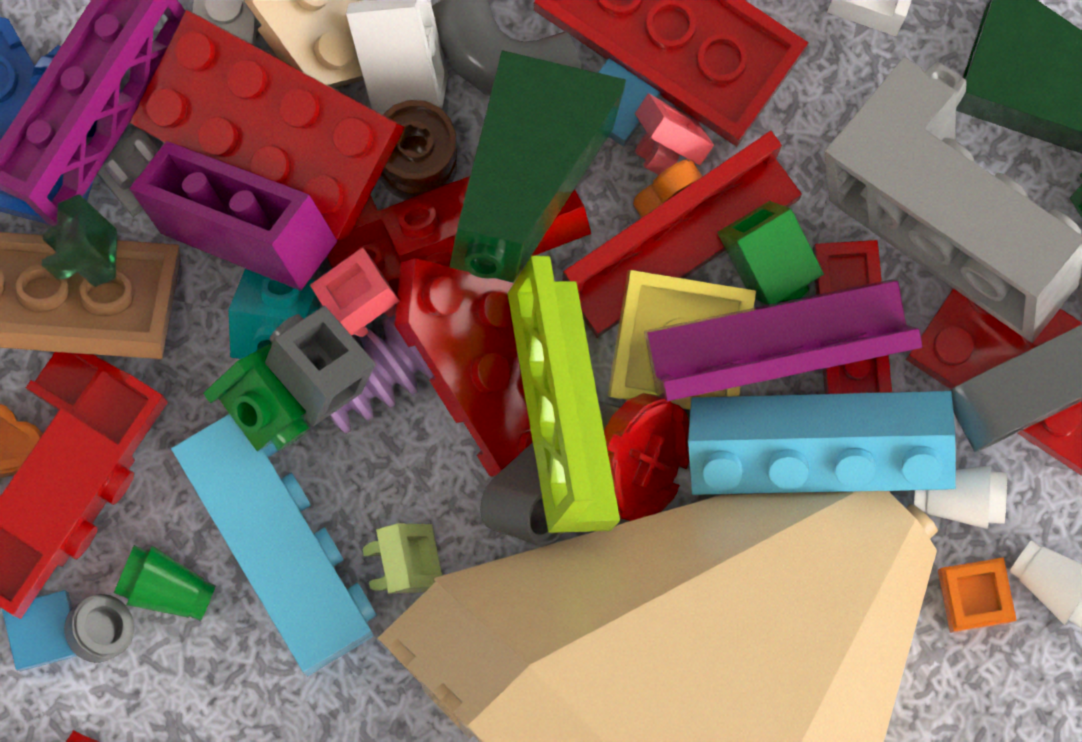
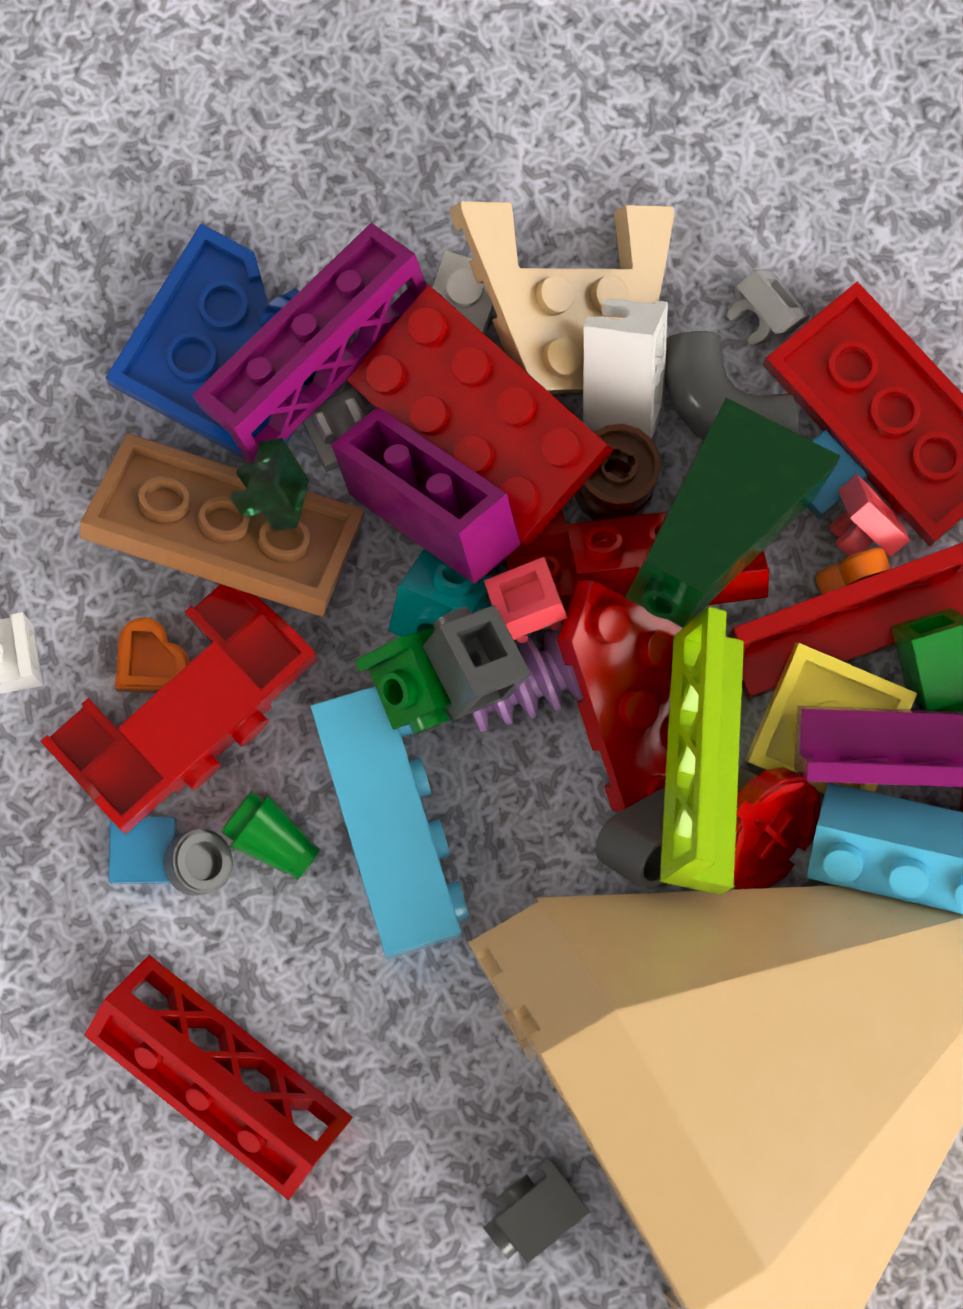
camera: 15 degrees right, 0 degrees up
(407, 558) = (513, 869): yellowish green tile -> none

